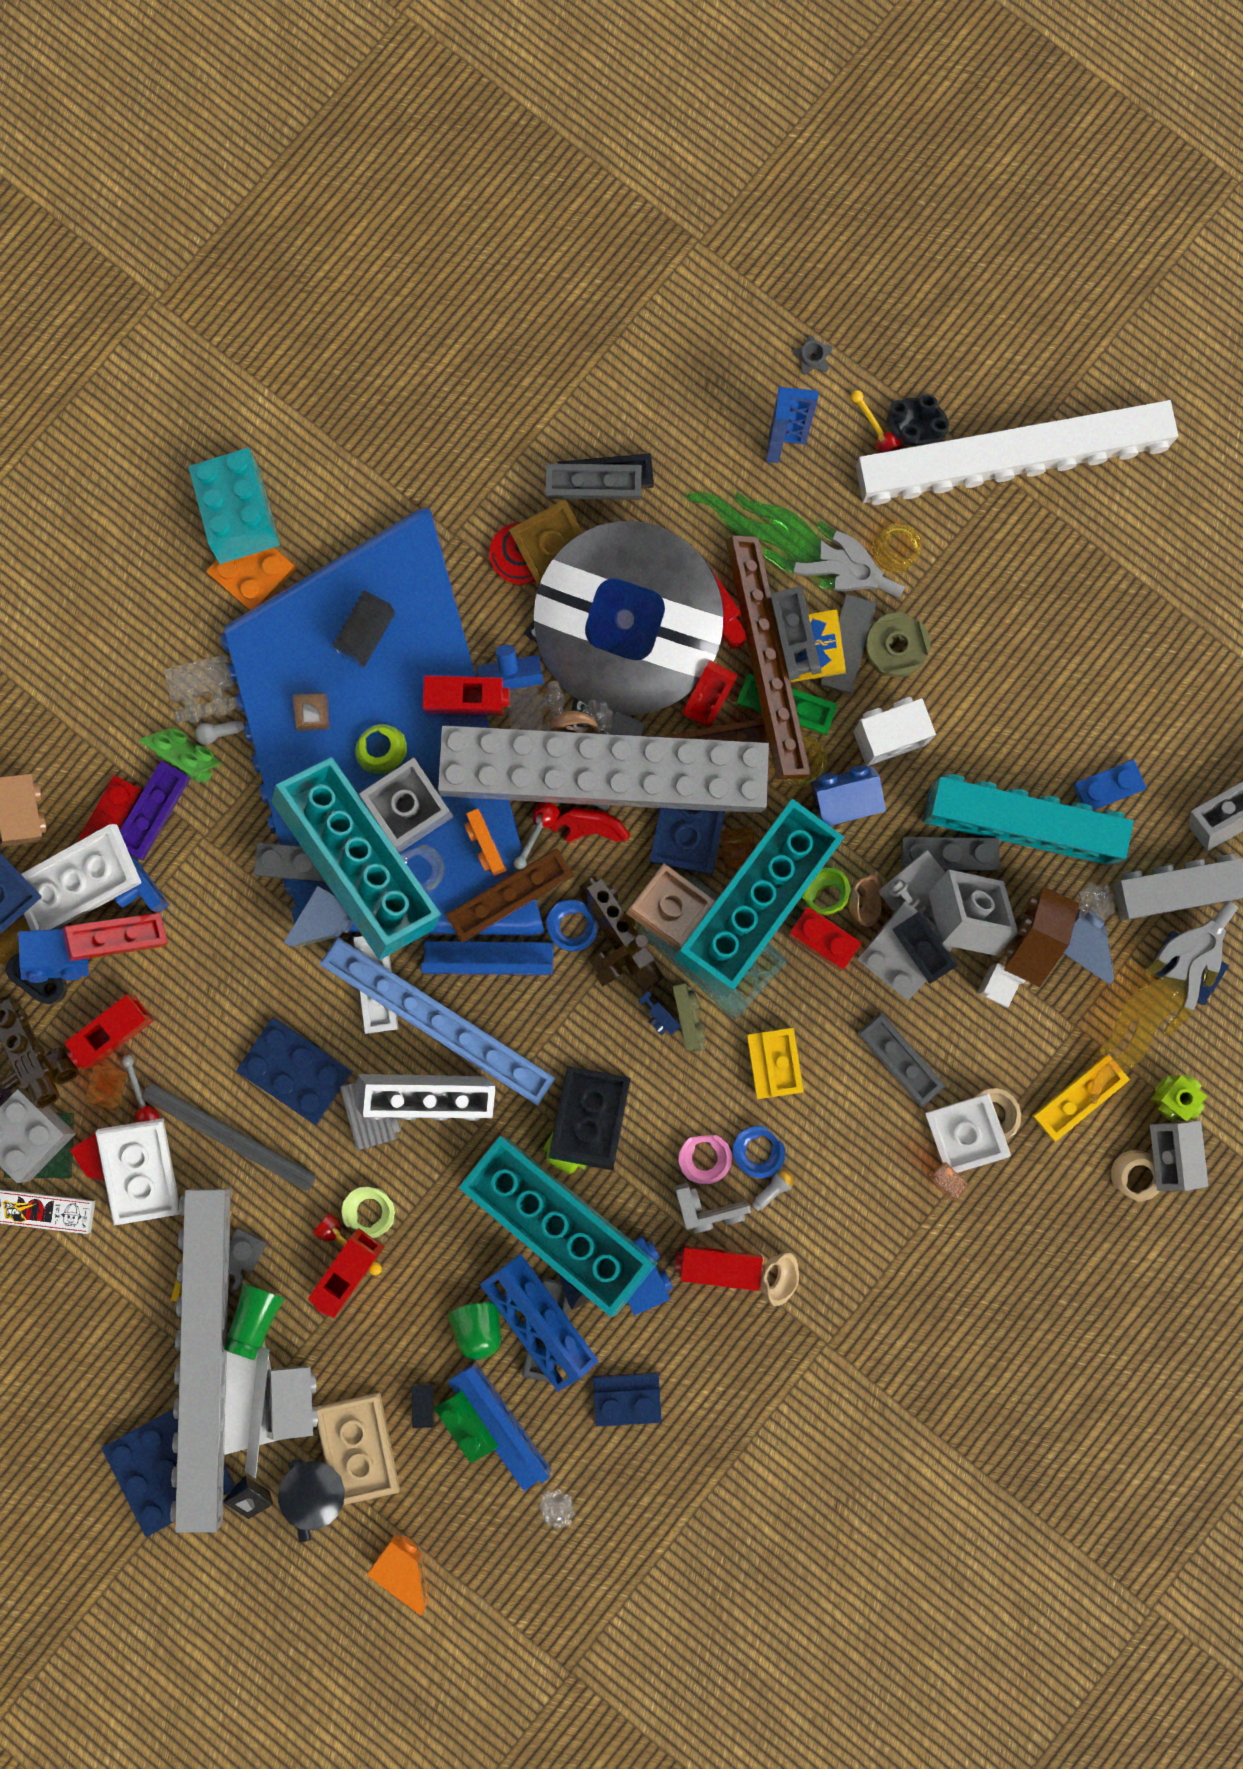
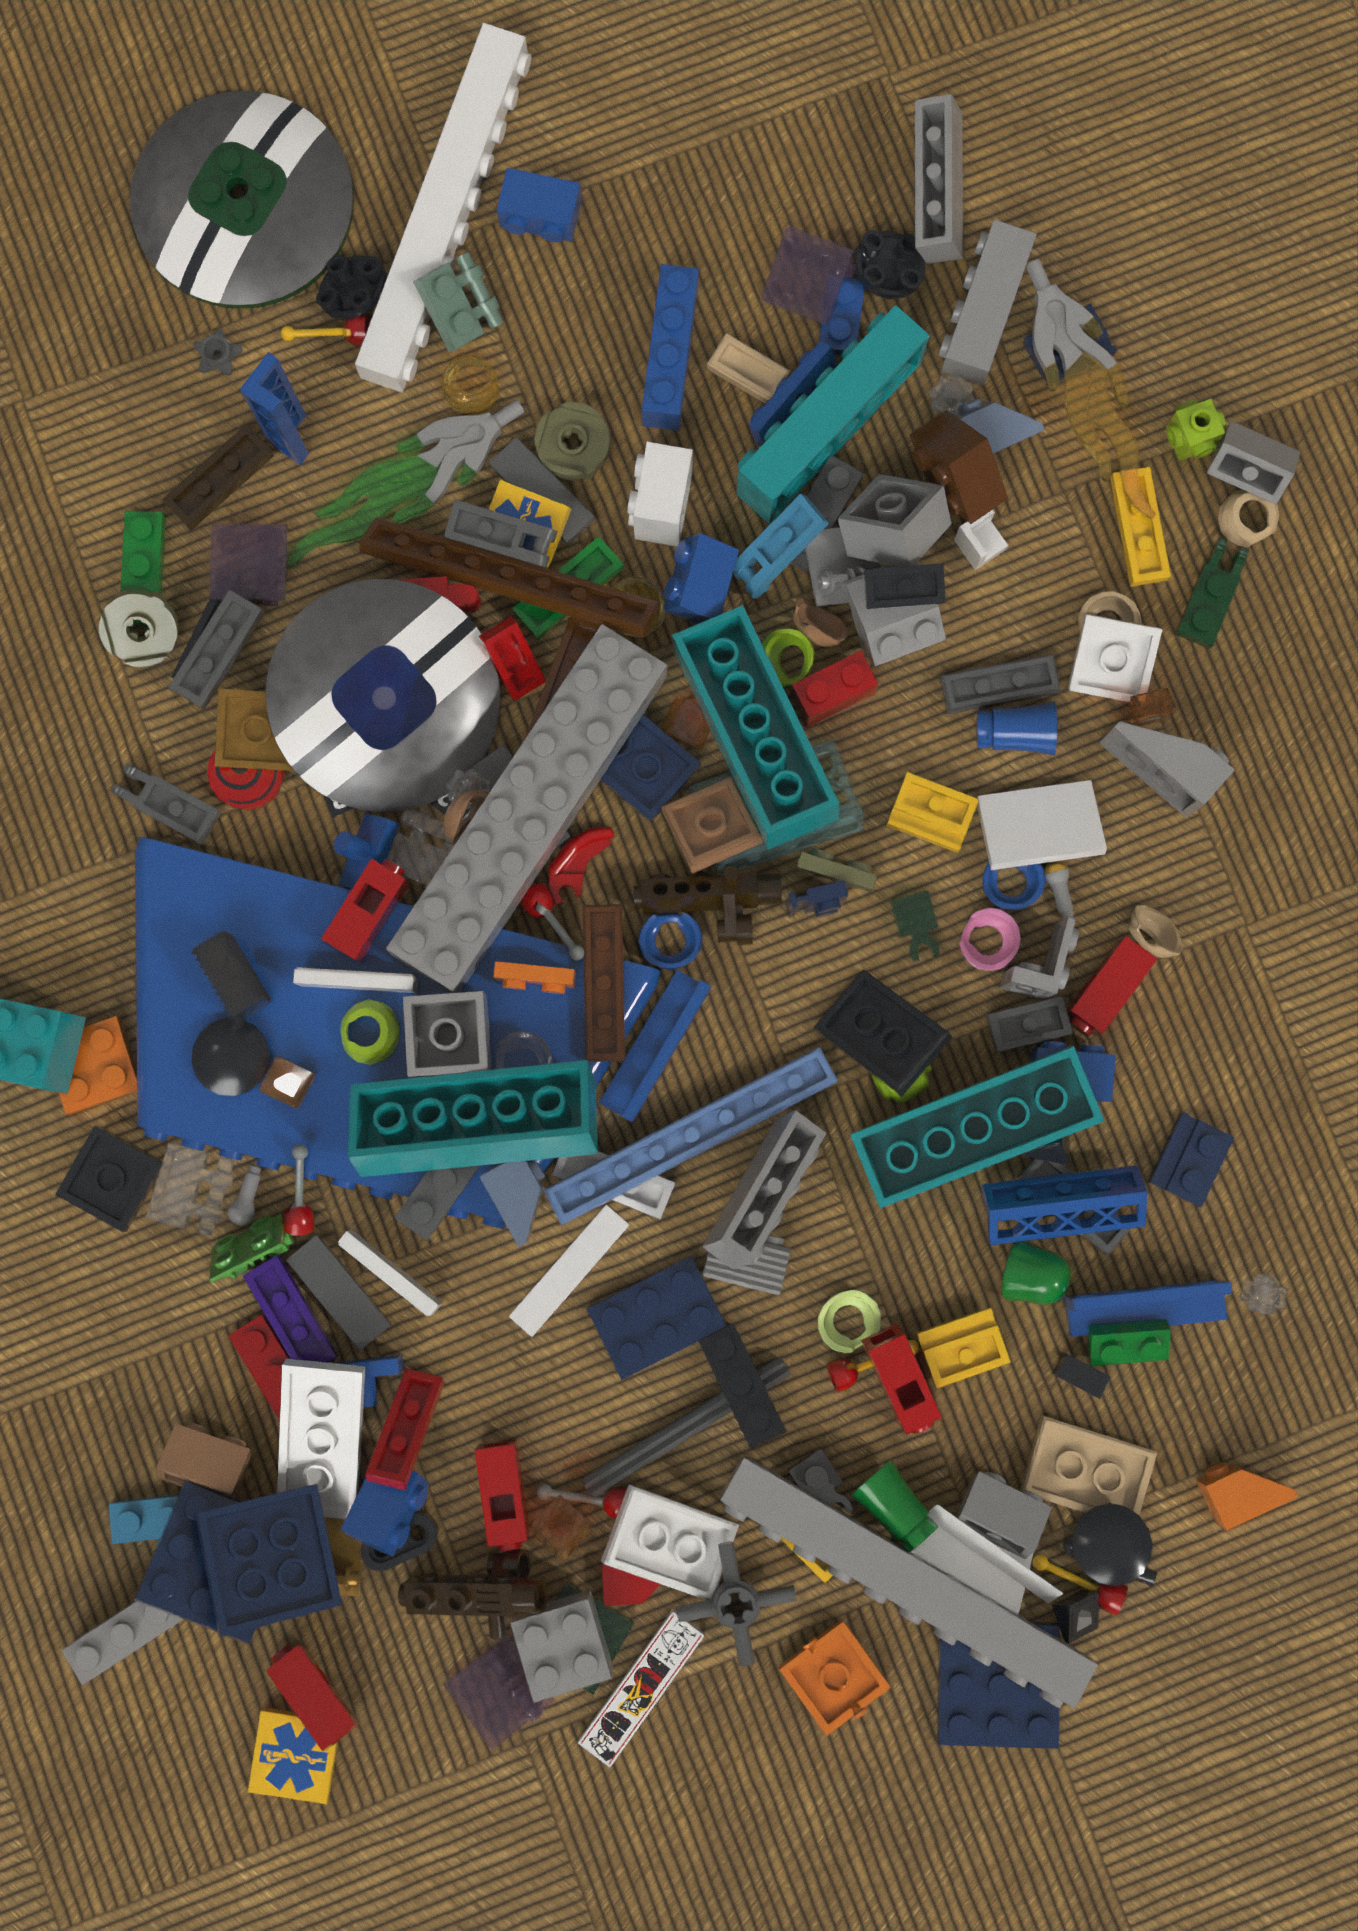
camera: 65 degrees left, 0 degrees up
(108, 1344) = (834, 1677): none -> orange plate
(112, 1253) = (747, 1592): none -> dark grey bar
(177, 628) = (110, 1179): none -> black plate
(187, 835) = (339, 1292): none -> dark grey tile
(220, 862) = (389, 1273): none -> white tile
(224, 775) = (298, 1216): none -> hinge
(272, 1515) = (1110, 1597): none -> hinge
(277, 1160) = (742, 1386): none -> black plate
(294, 989) = (569, 1270): none -> white sticker
(307, 662) = (230, 1057): none -> black dish
(395, 1306) = (963, 1347): none -> yellow plate
(410, 718) = (355, 980): none -> white tile
(465, 514) = (170, 805): none -> dark grey hinge
(595, 414) = (127, 644): none -> plate
(624, 395) = (143, 552): none -> green plate
(658, 1223) = (1029, 1024): none -> dark grey plate
(671, 467) = (249, 562): none -> hinge
(690, 1094) = (914, 918): none -> clear green plate
(721, 409) = (218, 477): none -> dark brown plate
(811, 1149) = (1041, 825): none -> white tile
(873, 1091) = (1019, 728): none -> blue plant
(906, 838) = (779, 545): none -> dark azure plate
(910, 1229) = (1174, 767): none -> light grey slope
(929, 346) = (252, 246): none -> dish
(942, 500) = (449, 307): none -> sand green plate
(1009, 675) = (670, 347): none -> blue brick
(1028, 741) = (747, 368): none -> tan tile
(1028, 780) = (790, 389): none -> blue tile
(1058, 519) = (539, 205): none -> blue brick
(1059, 1181) = (1211, 597): none -> dark green hinge
(1124, 744) = (808, 275): none -> hinge
(1169, 798) = (889, 264): none -> black dish

